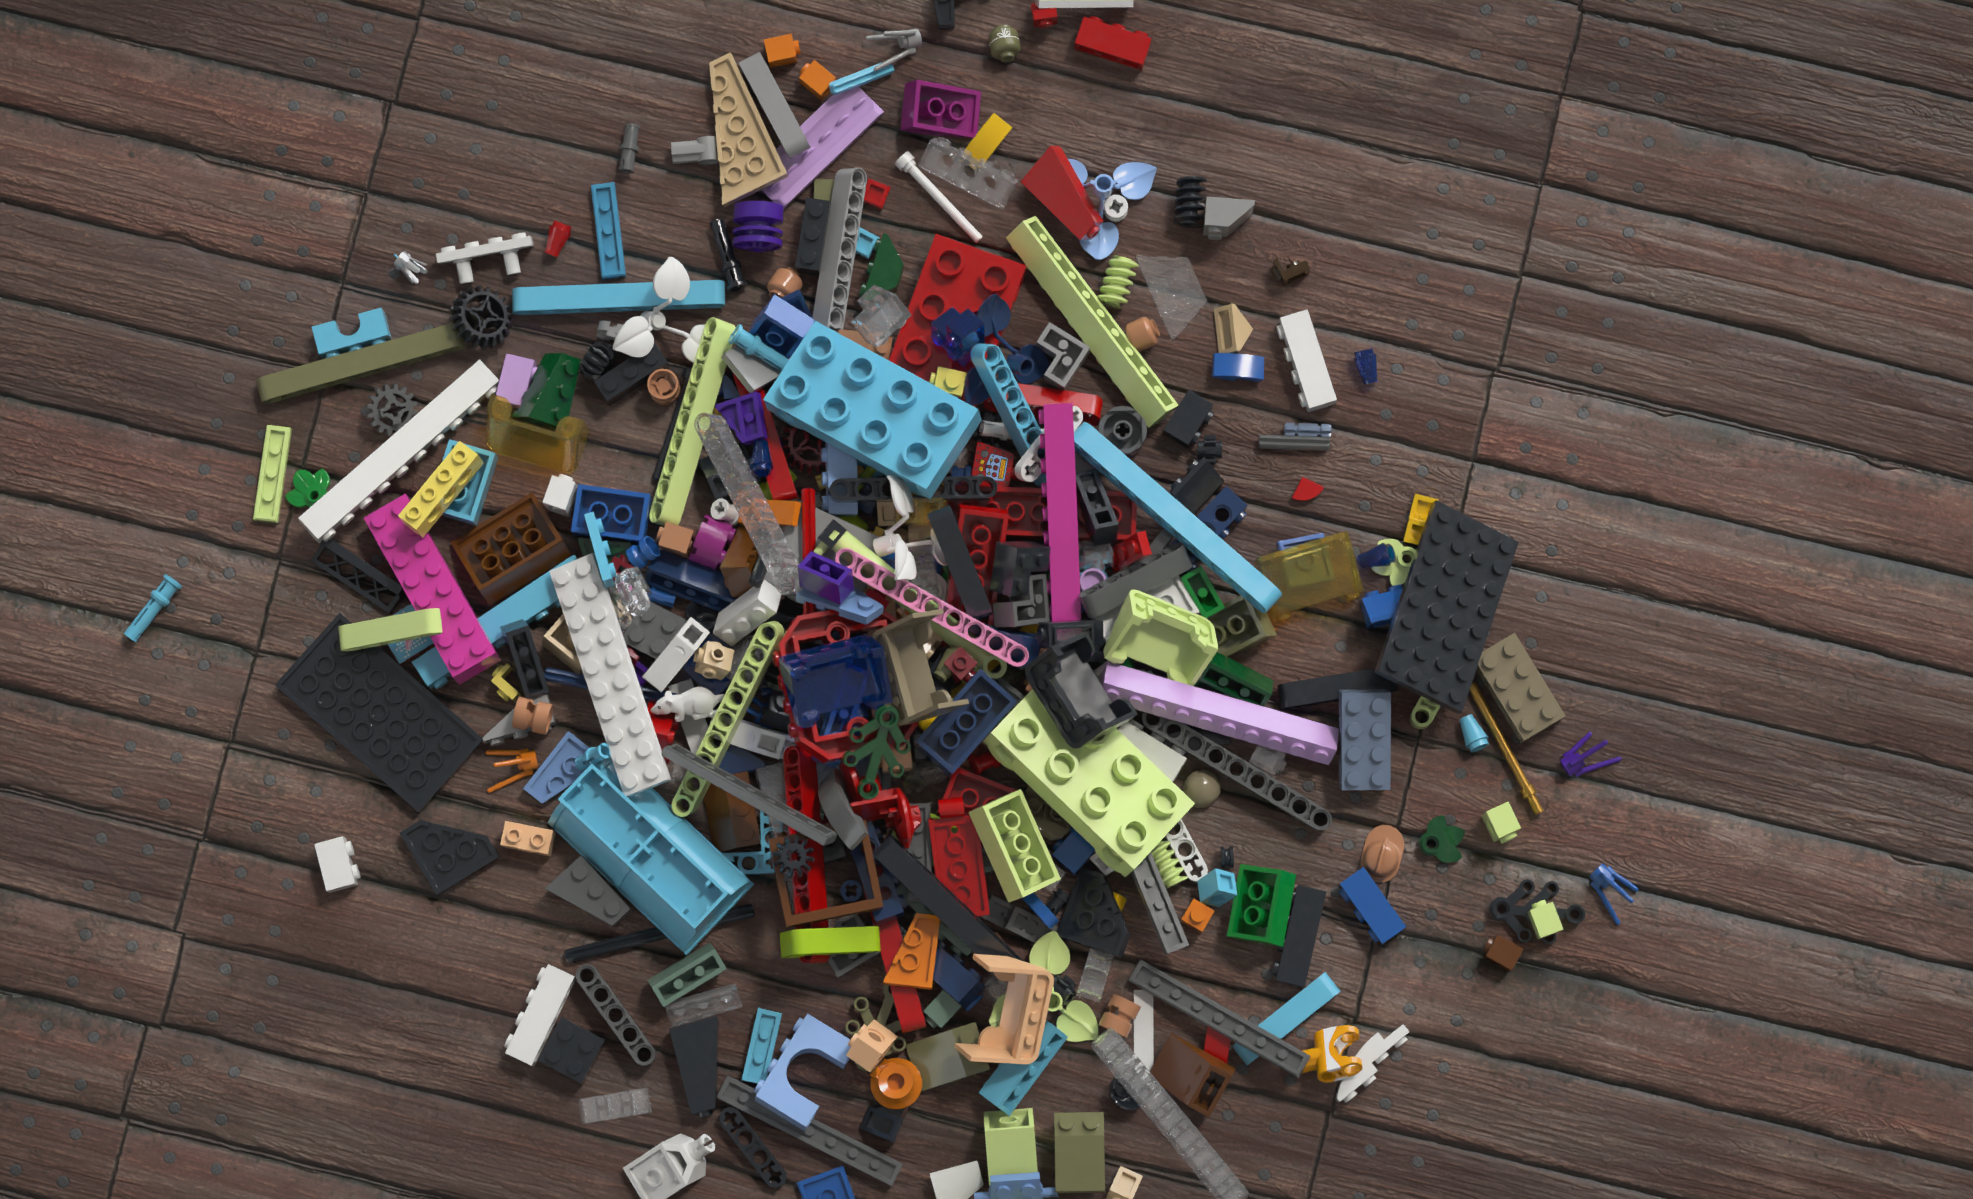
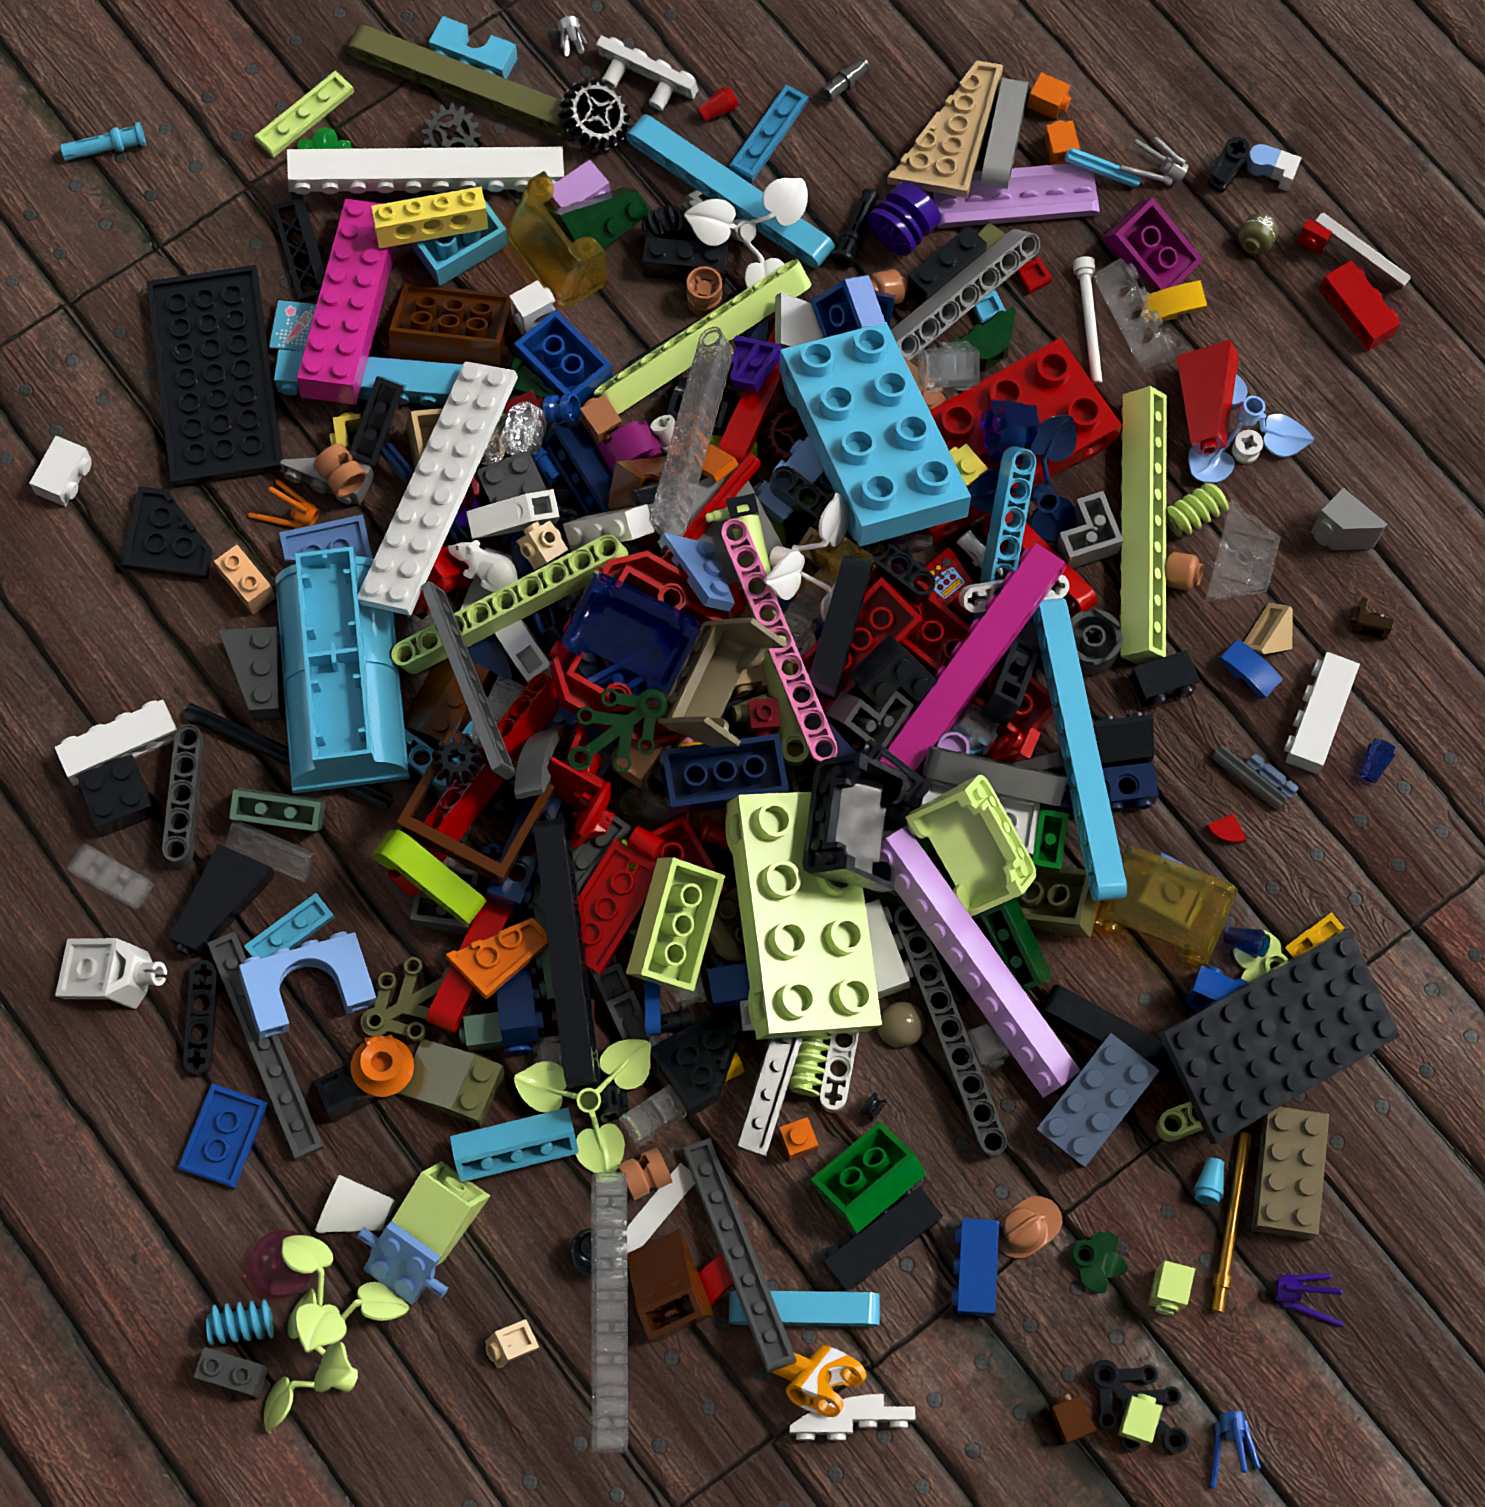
camera: 35 degrees right, 10 degrees down
(390, 629) = (281, 300): yellowish green beam -> none
(592, 756) = (363, 546): medium azure pin -> none
(601, 549) = (524, 371): medium azure plate -> none
(700, 150) = (901, 122): light grey piece -> none
(754, 346) = (813, 308): medium azure pin -> none
(761, 460) = (734, 406): clear blue cone -> none
(825, 578) = (701, 535): dark purple brick -> none
(870, 1045) = (385, 1006): light nougat brick -> none
(1022, 1015) = (554, 1089): light nougat windscreen -> none
(1079, 1152) = (496, 1271): olive slope -> none
(1188, 201) = (1321, 489): black piece -> none
(1209, 449) = (1164, 720): black gear -> none
(1217, 887) = (839, 1126): medium azure brick -> none

